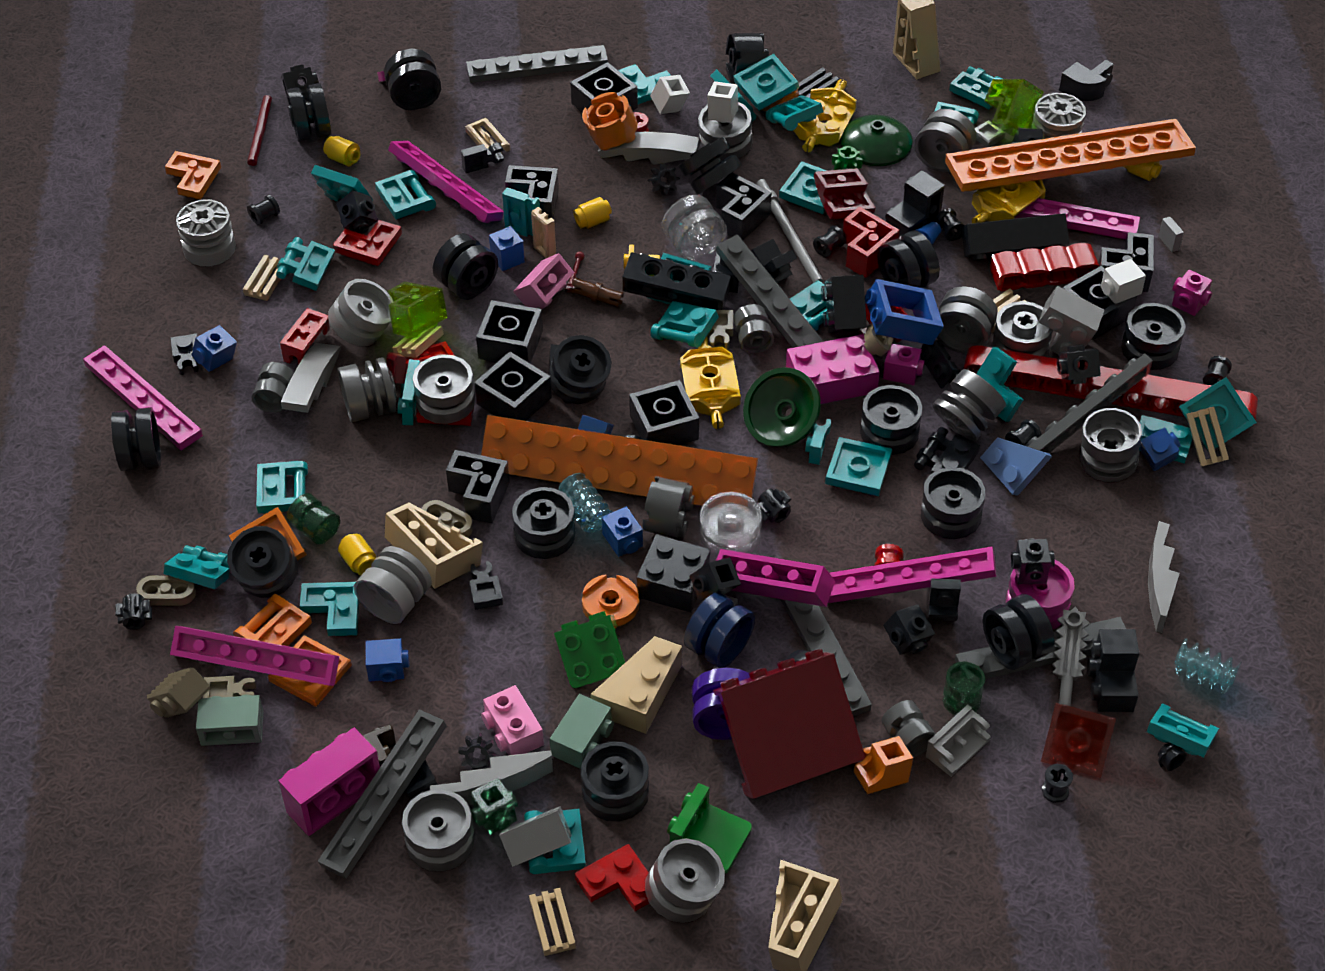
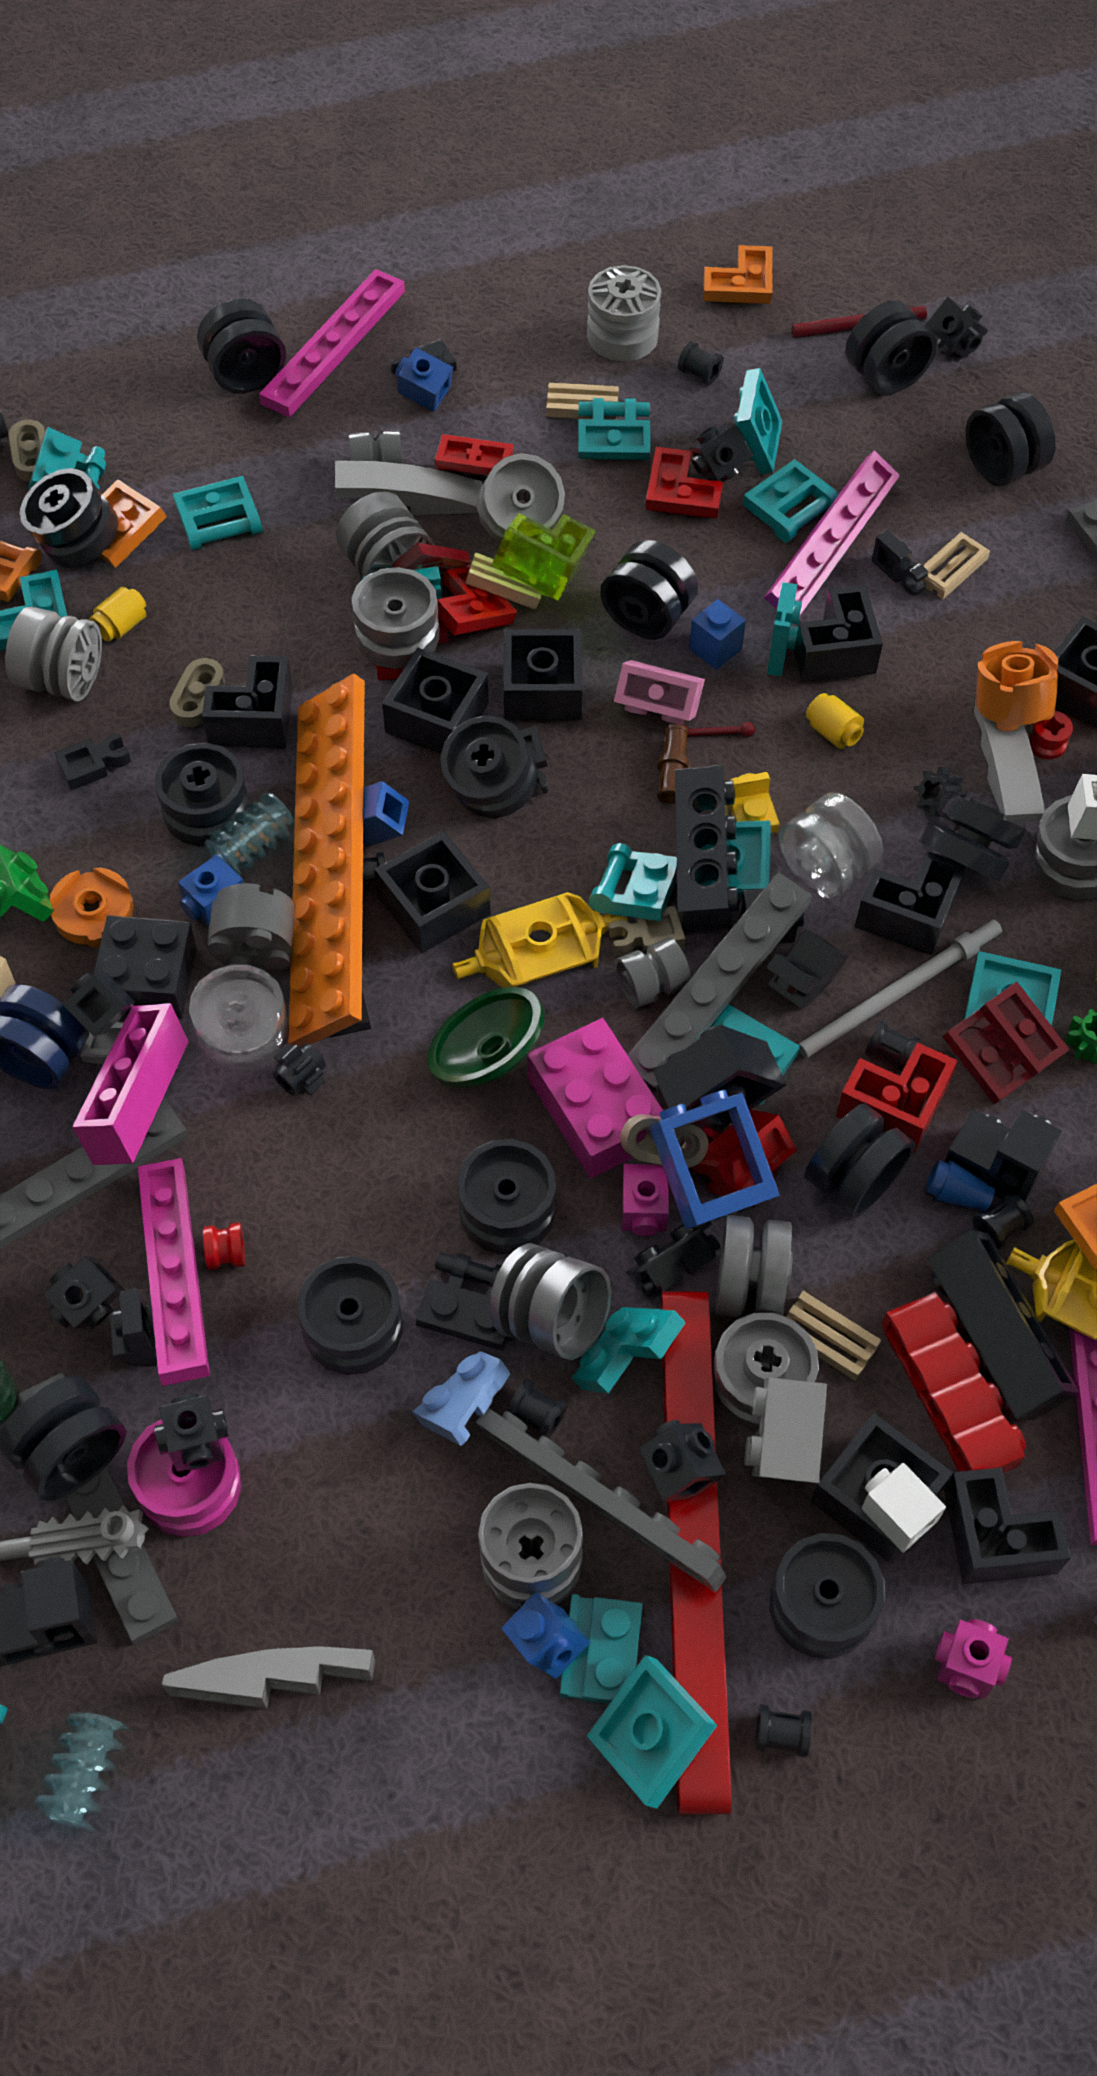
camera: 75 degrees right, 10 degrees up
(313, 518) = (162, 553): clear green wheel -> none
(342, 150) = (848, 411): yellow brick -> none
(436, 546) = (135, 679): tan wedge -> none
(543, 233) = (750, 663): tan tile -> none
(816, 443) = (445, 1105): teal plate -> none
(858, 466) = (412, 1173): teal plate -> none
(1201, 414) = (596, 1713): tan tile -> none

